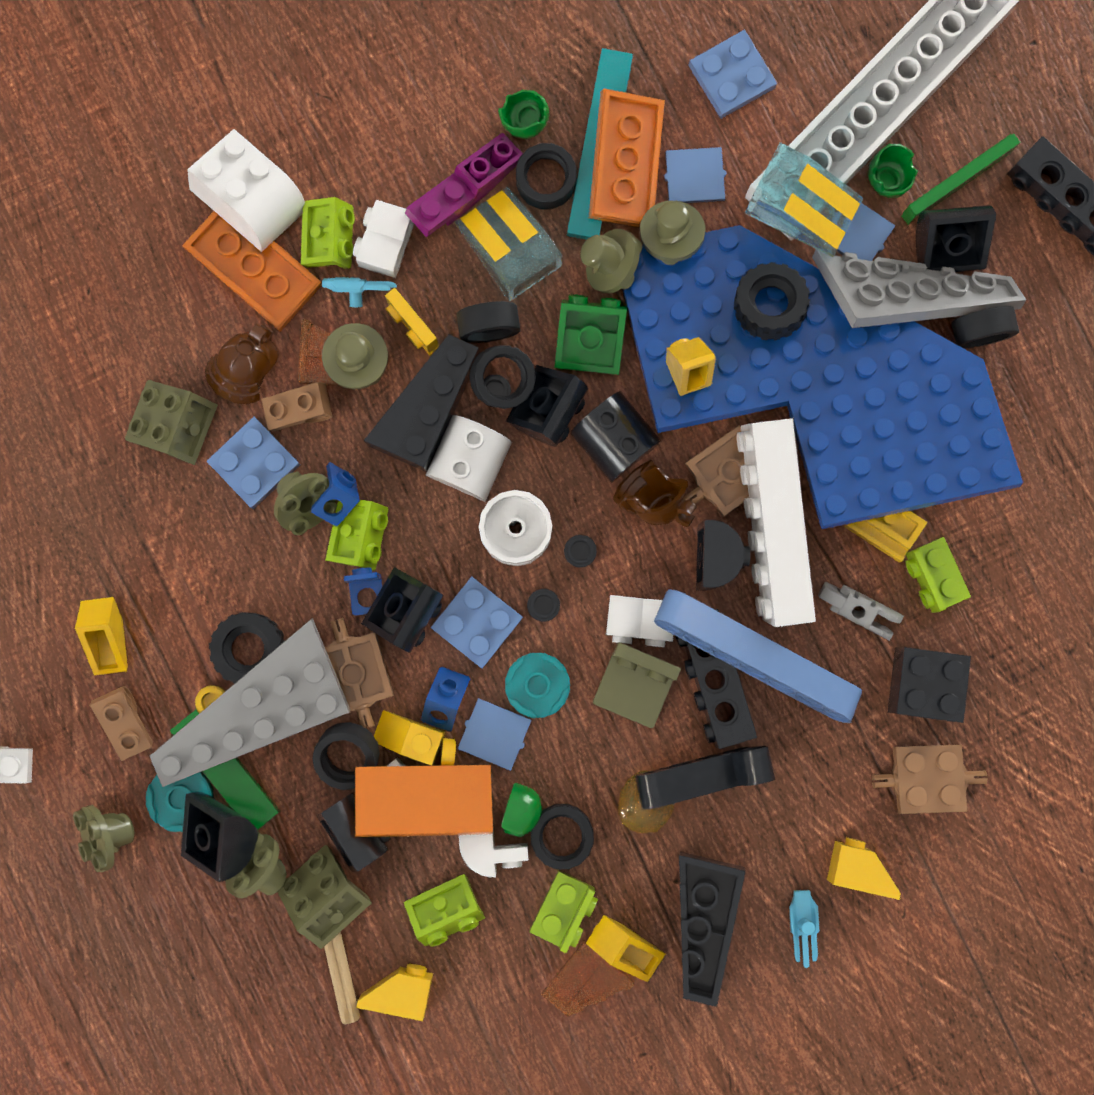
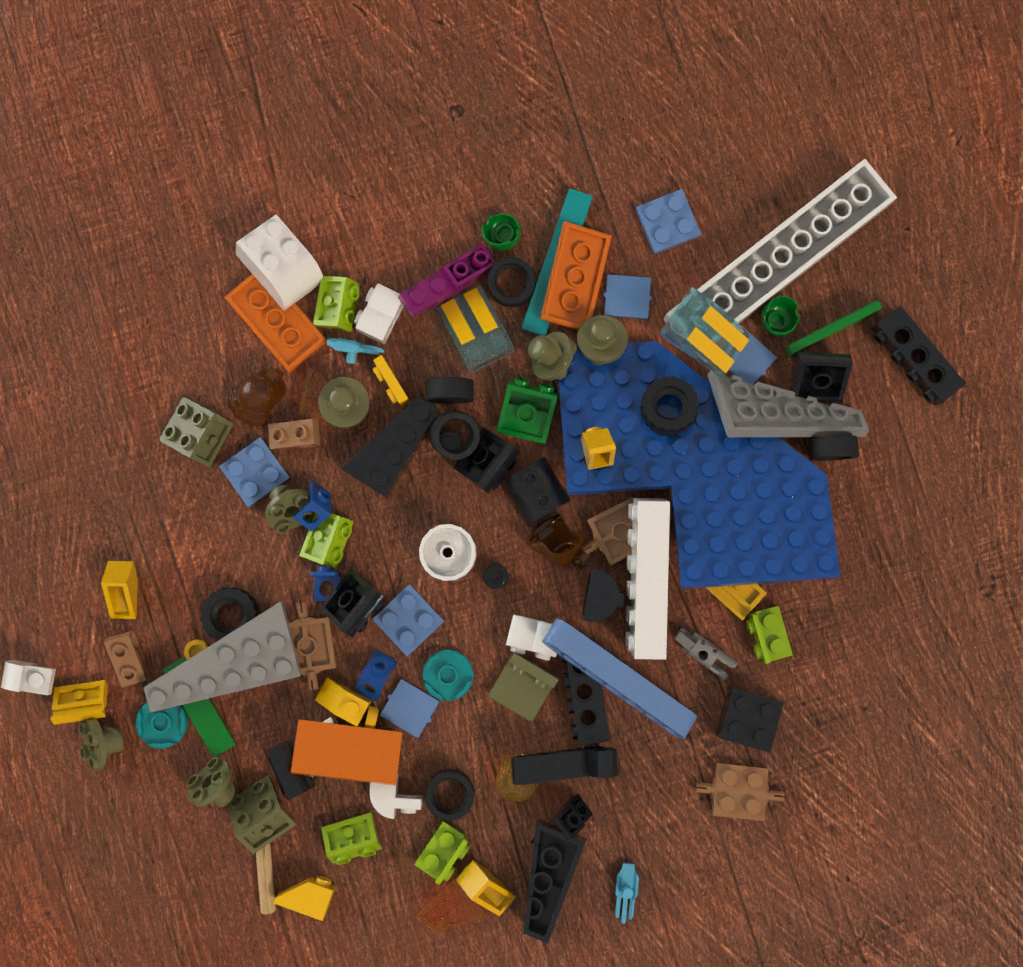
camera: 15 degrees right, 0 degrees up
(69, 787) = (79, 702): none -> yellow plate
(216, 837) = (185, 757): black brick -> none
(349, 732) = (297, 691): black tyre -> none
(469, 457) = (420, 492): white brick -> none
(522, 811) = (421, 771): green hair -> none
(543, 605) = (461, 614): black plate -> none
(724, 840) = (572, 816): none -> black slope
(860, 869) = (675, 854): yellow slope -> none

